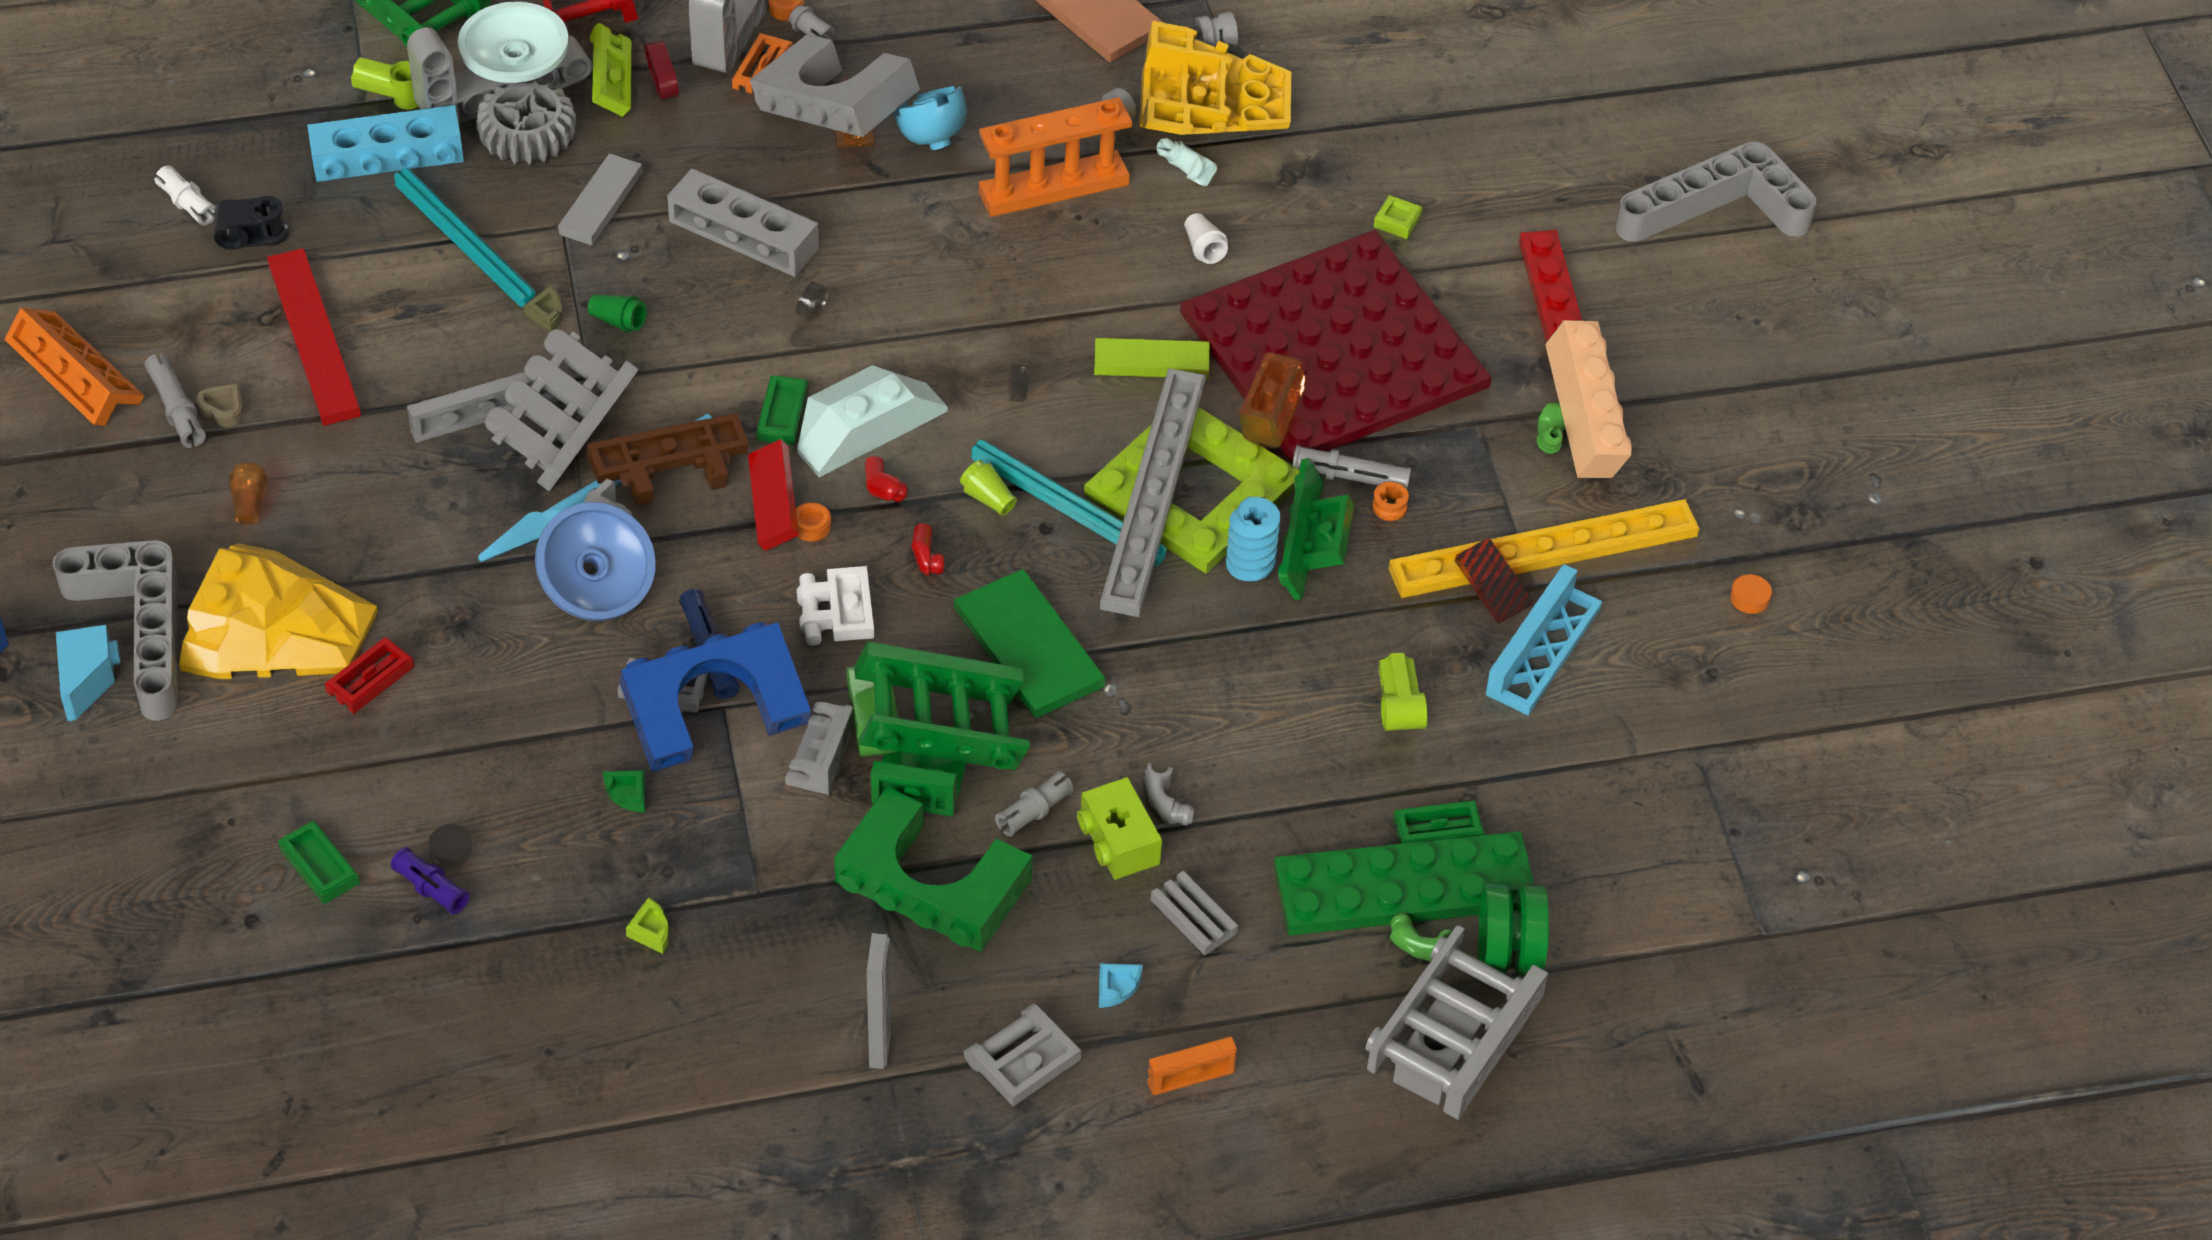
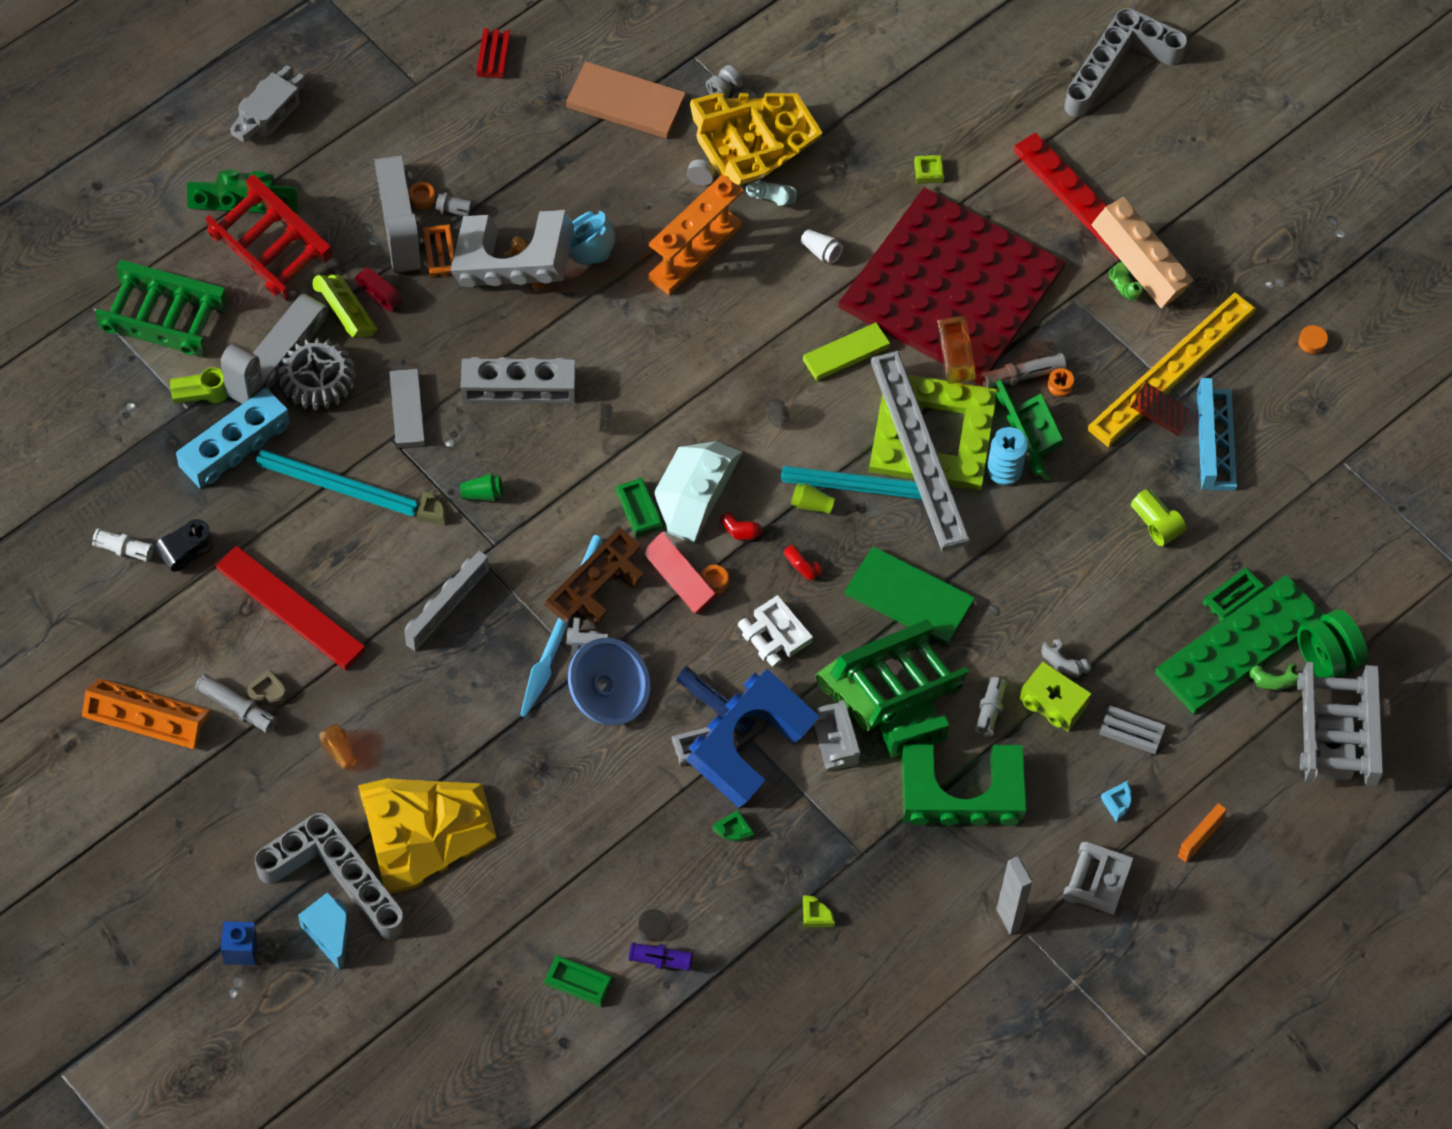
camera: 30 degrees left, 10 degrees up
(373, 679) = (507, 857): red tile -> none
(513, 42) = (280, 310): light aqua dish -> none
(545, 414) = (521, 584): light grey fence -> none

